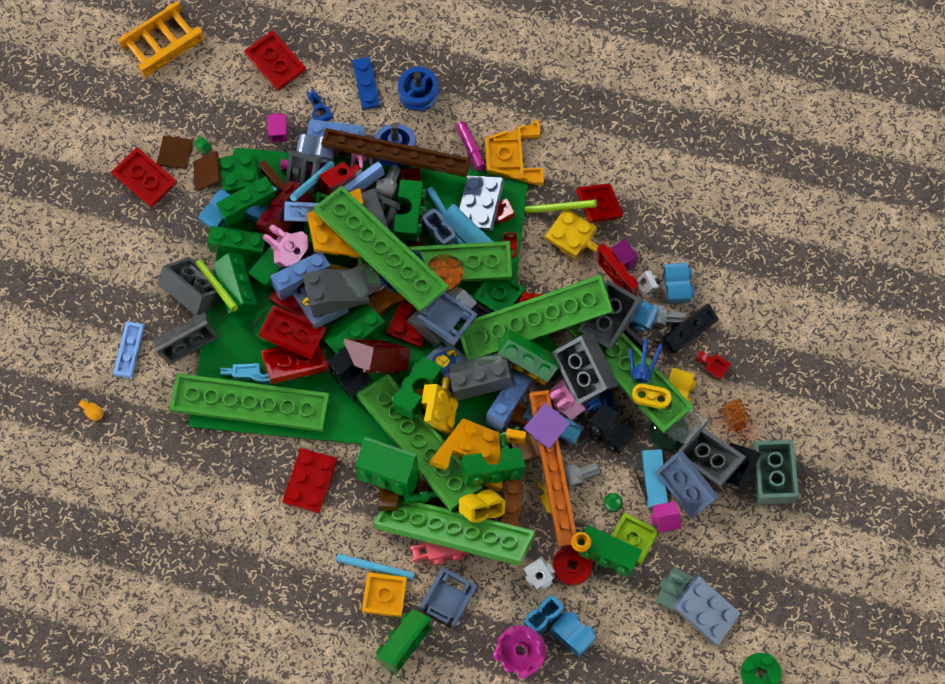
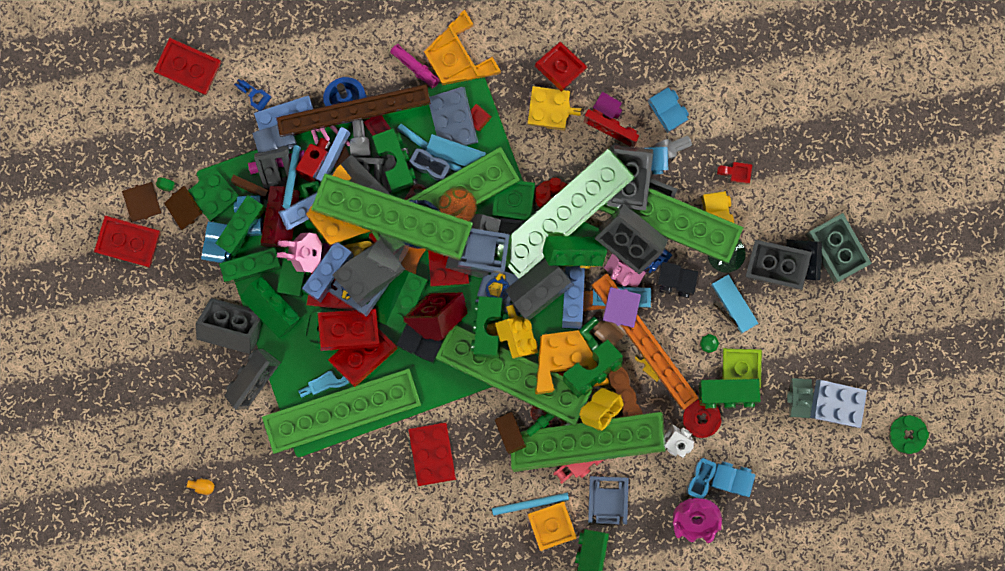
camera: 25 degrees left, 15 degrees up
(129, 350) = (203, 413): light blue tile -> none
(166, 54) = (78, 112): light orange fence -> none
(217, 286) = (254, 317): lime bar -> none
(277, 127) = (225, 133): dark pink brick -> none
(366, 83) = (284, 48): blue plate -> none
(387, 467) = (499, 413): green slope -> none
(418, 88) = (337, 32): blue wheel -> none
(513, 242) = (499, 142): red piece -> none
(516, 436) = (599, 329): light orange tile -> none
(561, 206) = (529, 87): lime bar -> none
(575, 475) = (665, 336): light grey axle -> none
(581, 536) = (711, 400): light orange plate -> none
(641, 372) = (684, 218): blue plant -> none
(647, 283) = (641, 123): white tile -> none
(651, 394) = (702, 236): yellow plate -> none
(666, 517) = (763, 336): dark pink brick -> none
(686, 484) = (768, 299): sand blue plate -> none
(688, 428) = (747, 246): clear piece -> none
(690, 328) = (700, 147): black plate -> none
(735, 415) = (778, 211): clear orange brick -> none

